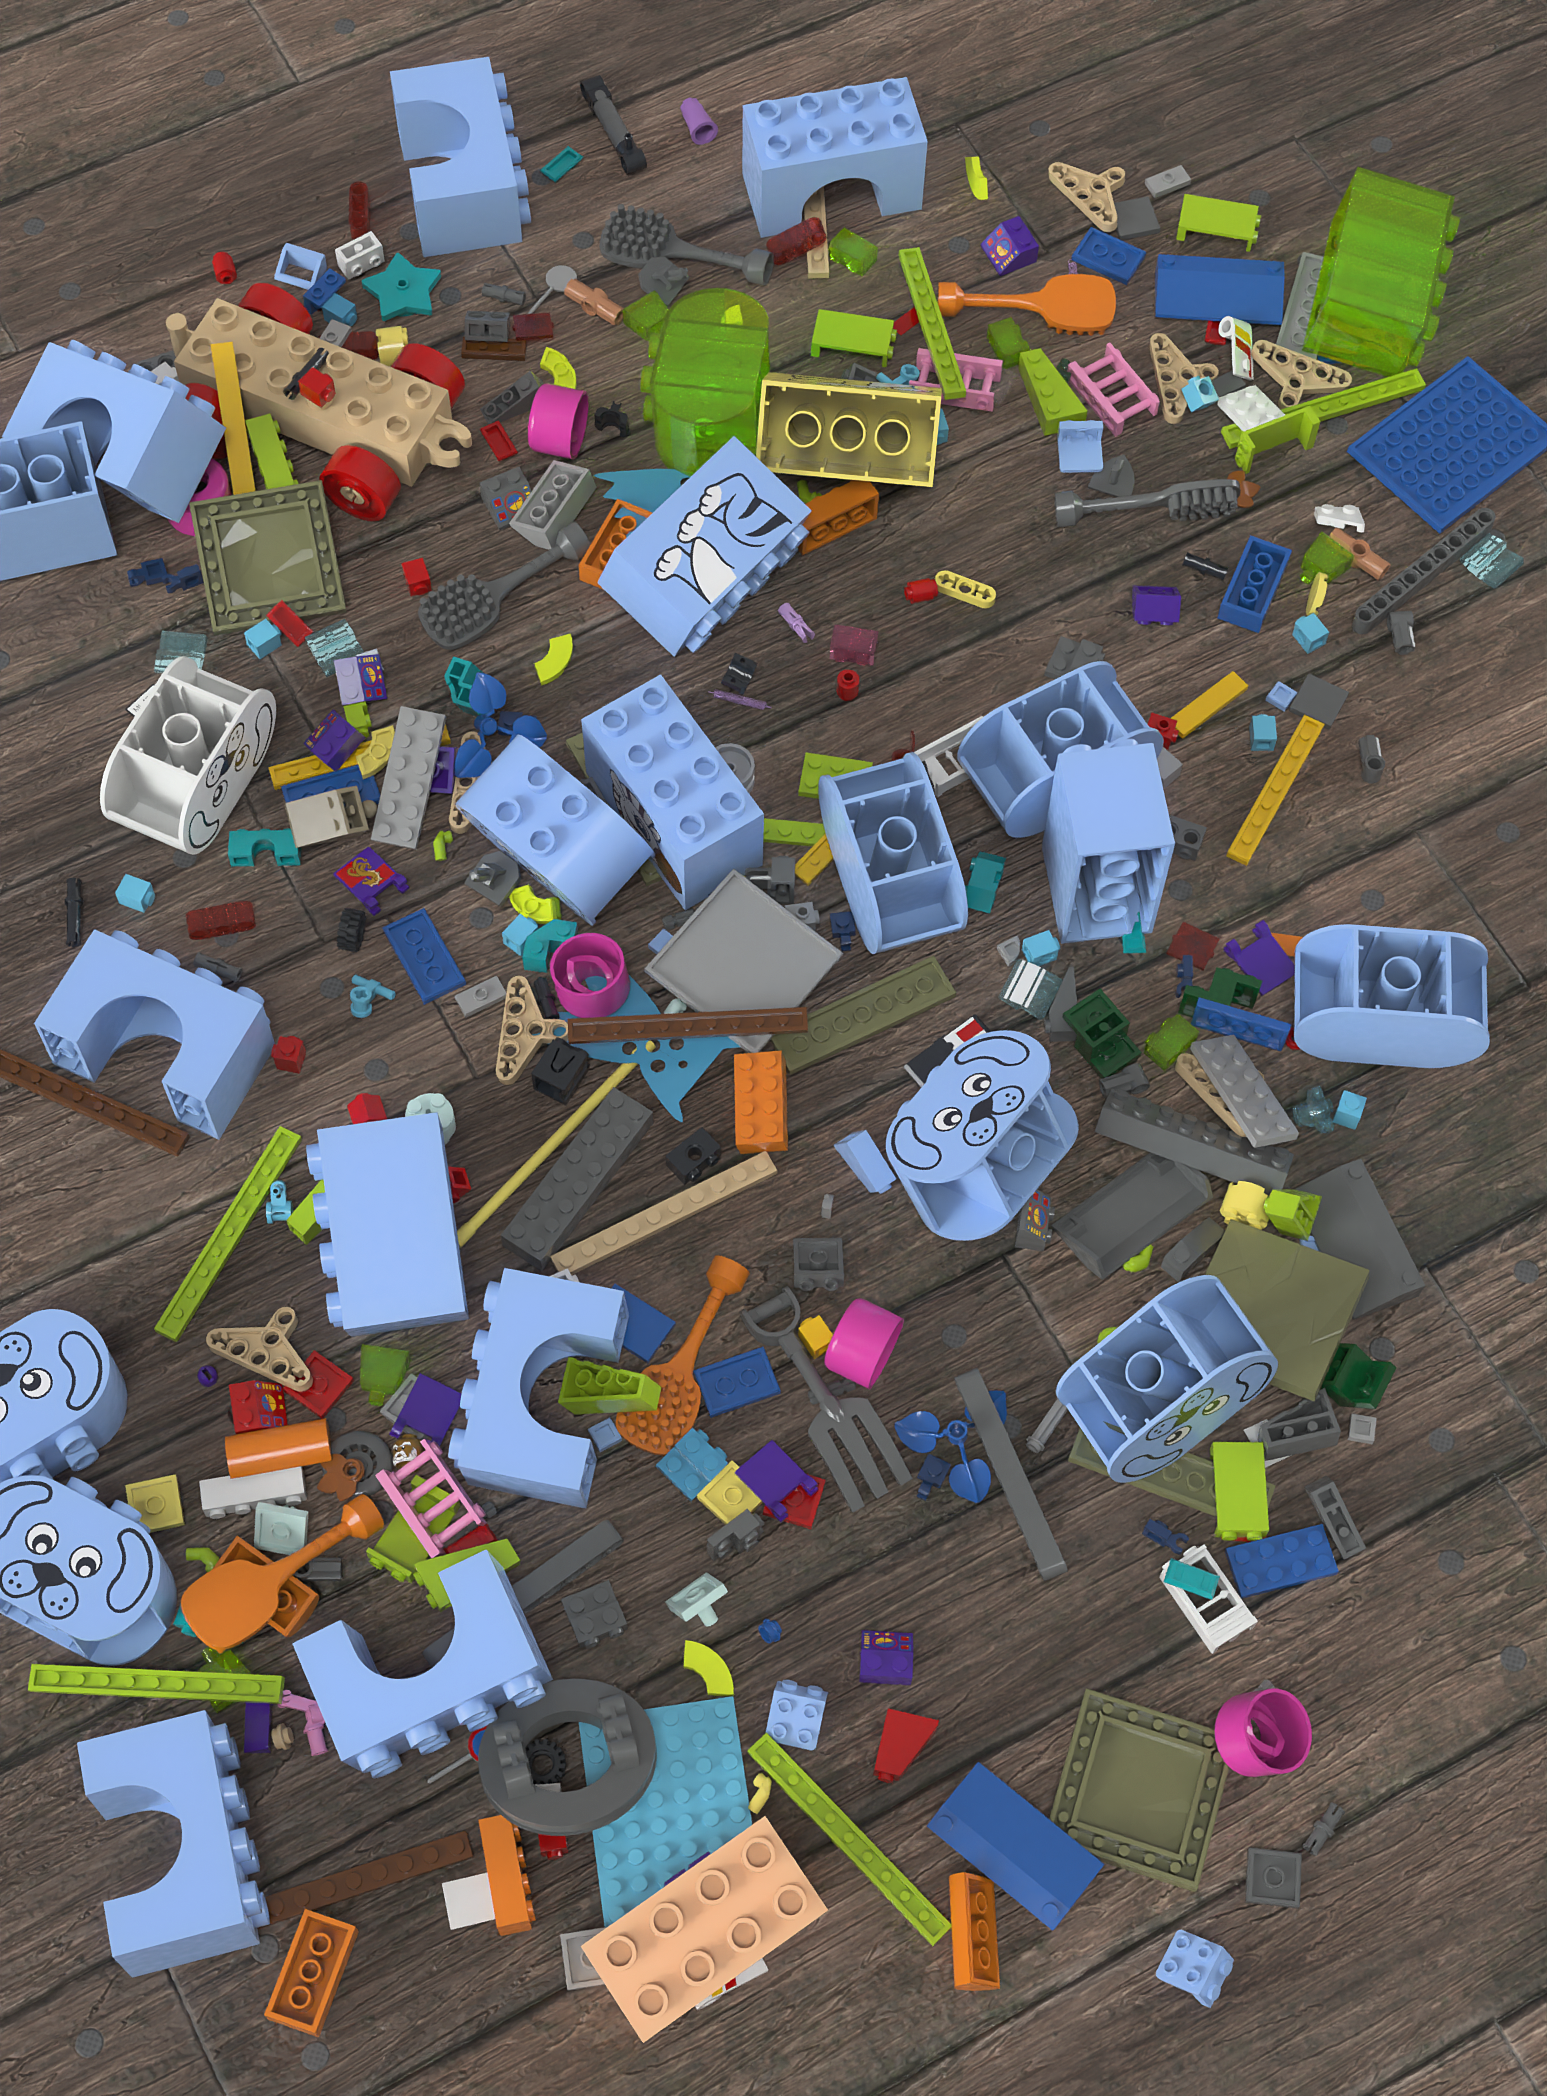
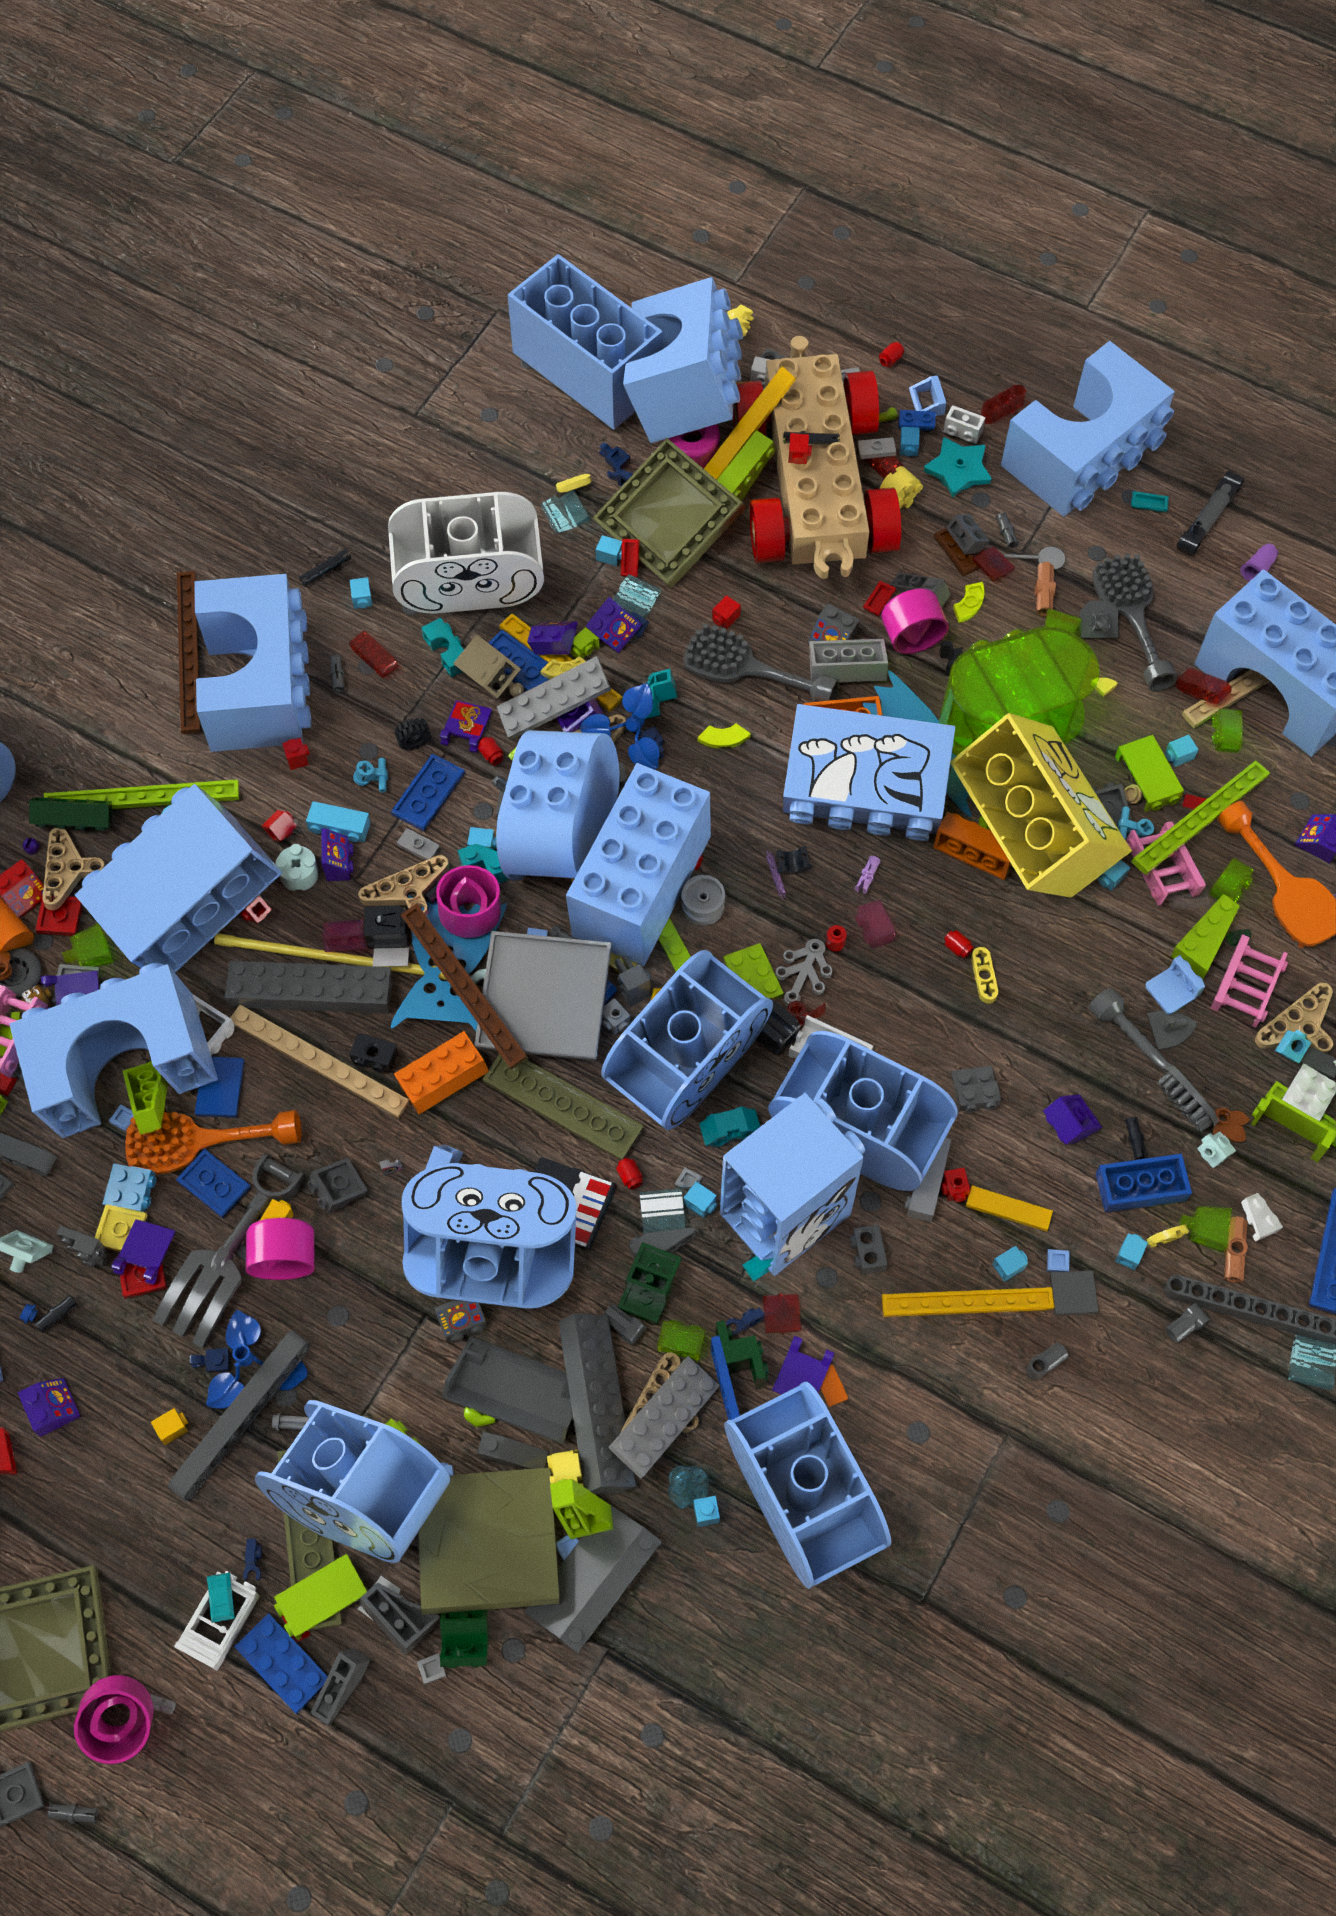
camera: 60 degrees right, 0 degrees up
(153, 626) = (573, 483): none -> light yellow tile
(202, 1310) = (70, 813): none -> dark green brick
(401, 1055) = (338, 819): none -> medium azure brick
(420, 871) = (491, 751): none -> red brick
(443, 1076) = (336, 856): none -> dark purple slope
(542, 1115) = (343, 935): none -> clear pink brick
(595, 1085) = (390, 957): none -> white sticker
(787, 1603) = (56, 1313): none -> black pin
(847, 298) = (1181, 751): none -> medium azure brick
(860, 730) = (805, 968): none -> light grey plant
(865, 360) = (1133, 794): none -> tan plate
(974, 995) = (629, 1173): none -> red brick
(980, 1547) = (170, 1426): none -> yellow brick
(1257, 510) = (1216, 1148): none -> light aqua brick

